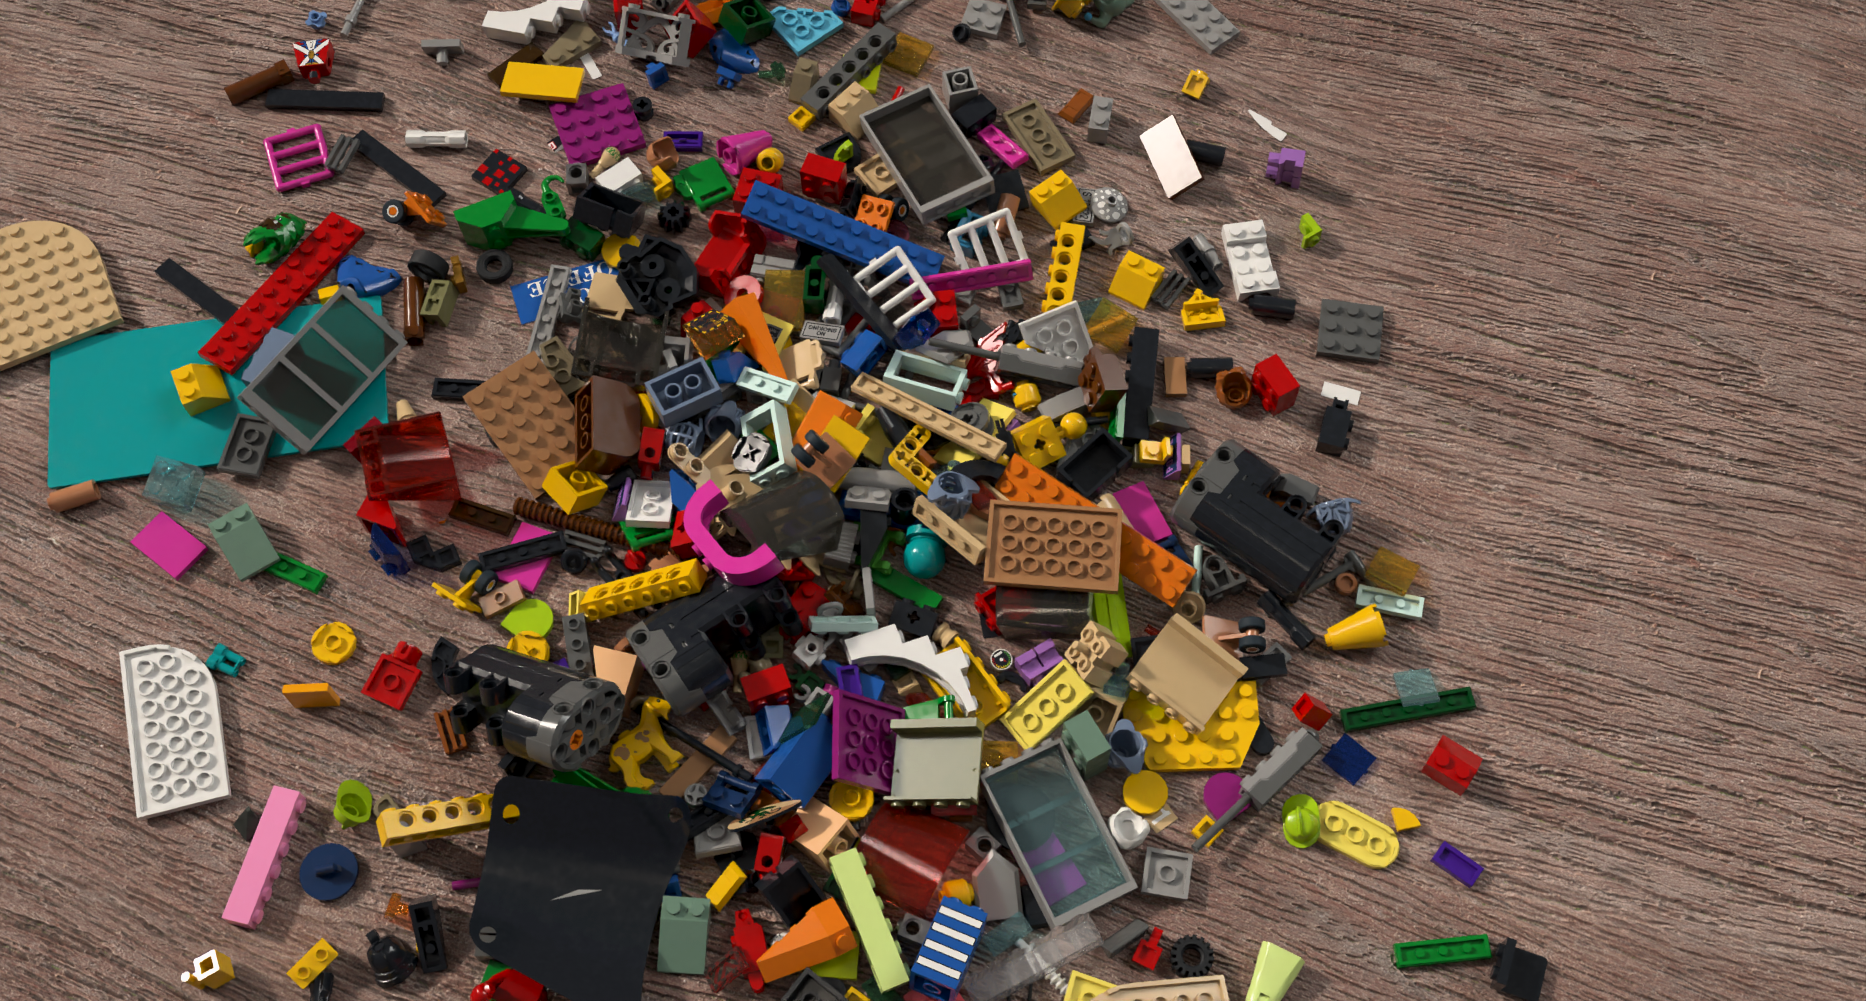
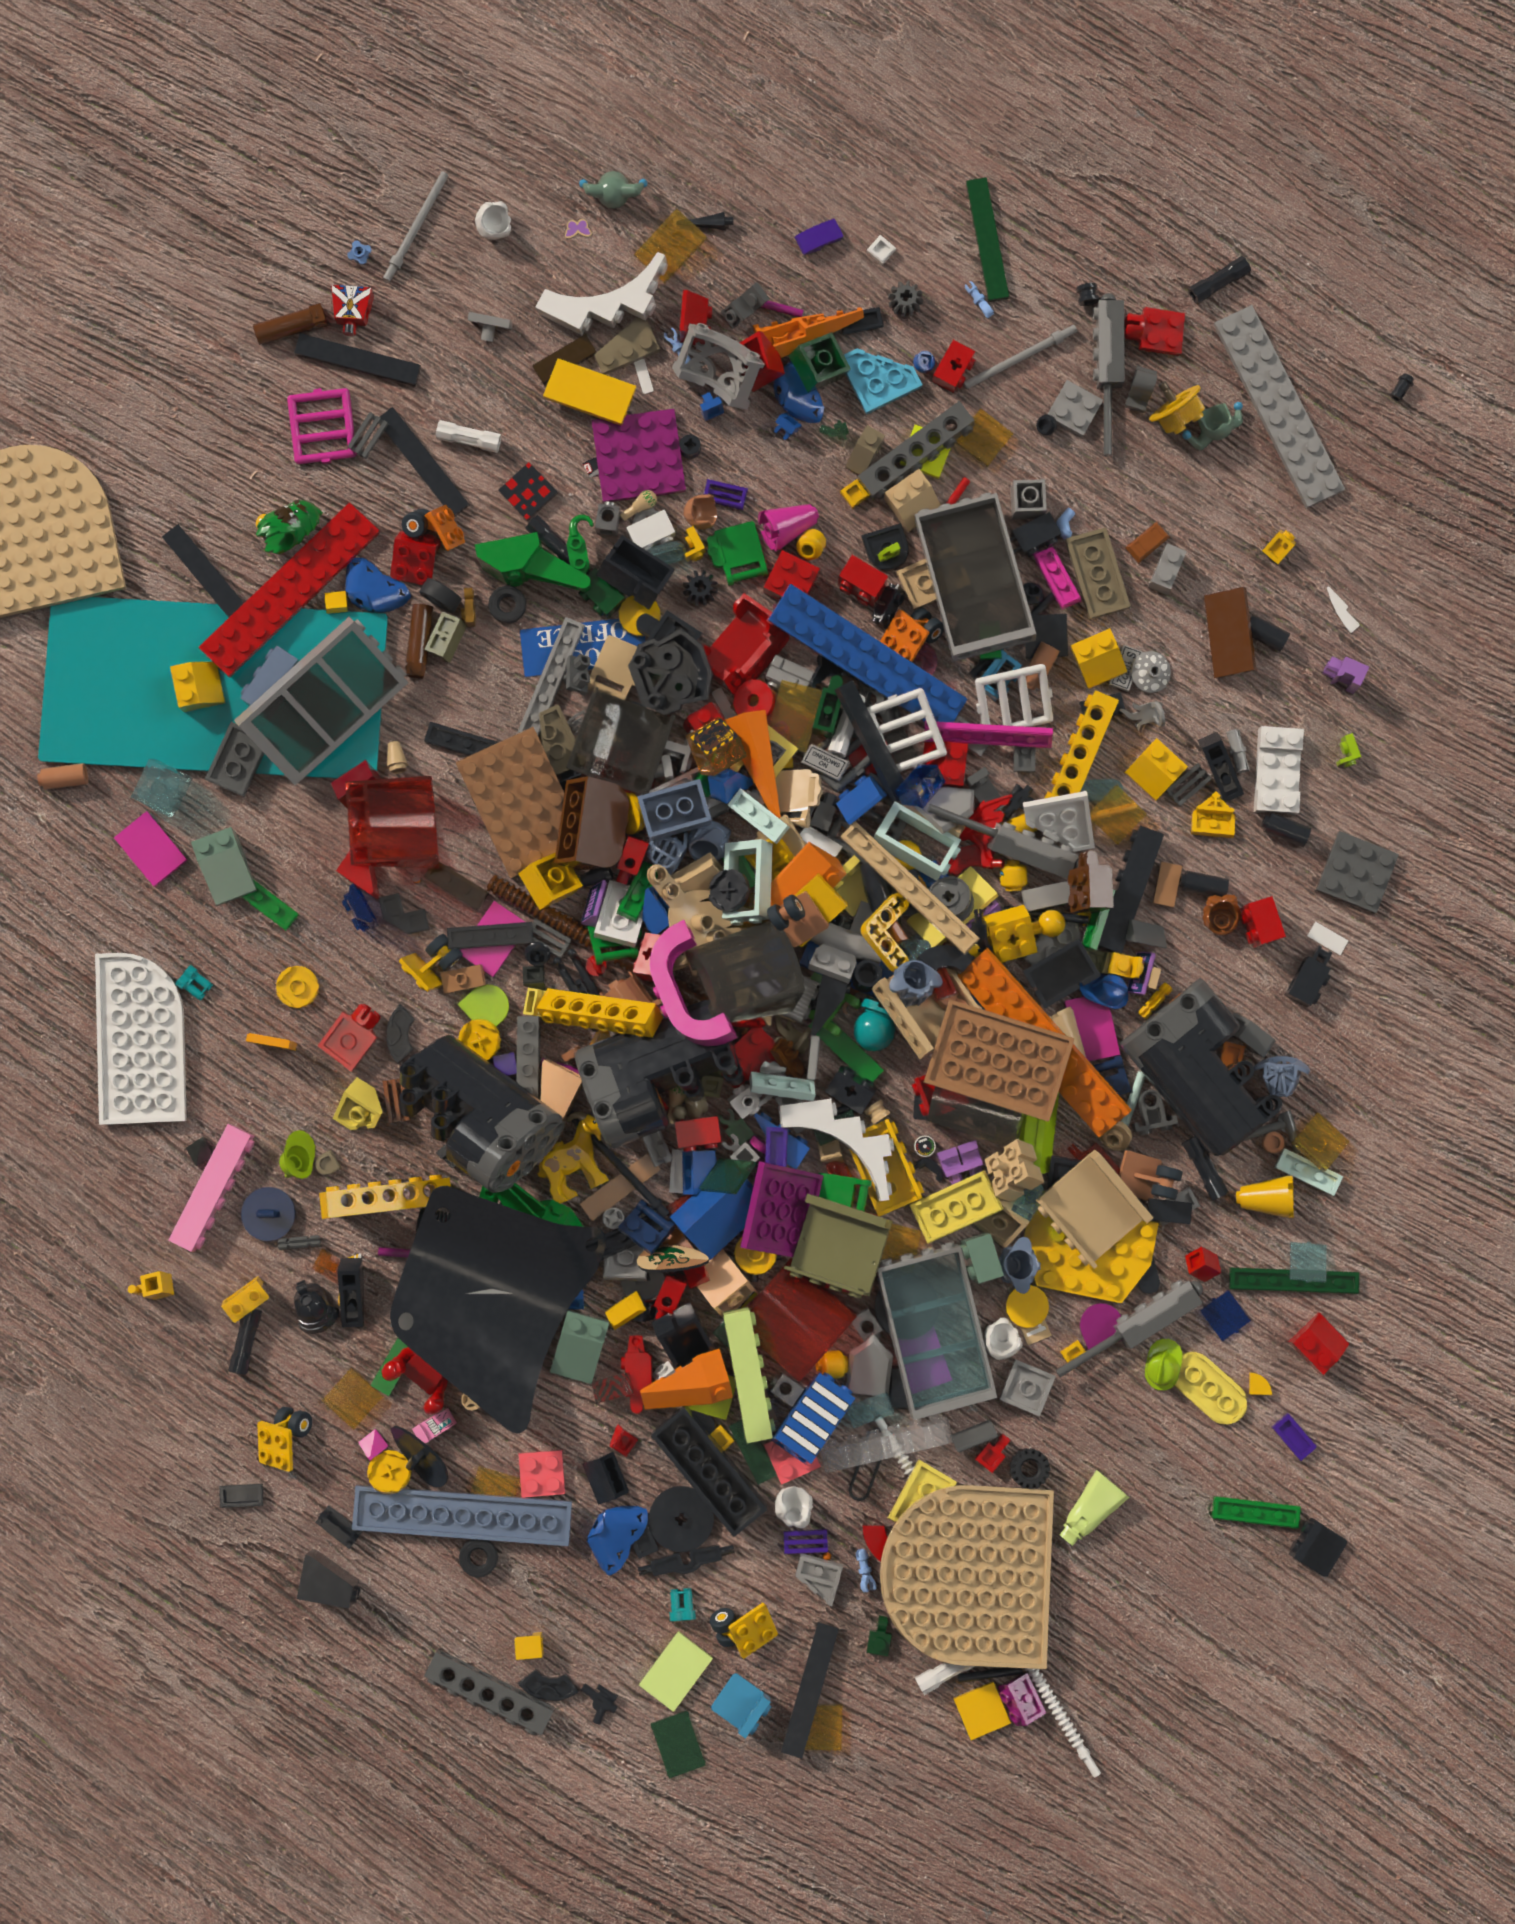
camera: 10 degrees right, 20 degrees up
(365, 894) = (299, 1242): none -> dark grey axle
(398, 243) = (414, 558): none -> red bracket
(410, 742) = (359, 1106): none -> light yellow slope
(573, 583) = (534, 977): none -> pearl dark grey slope
(660, 489) = (634, 899): none -> green tile
(997, 102) = (1063, 523): none -> light blue arm
(1143, 477) = (1107, 991): none -> blue piece

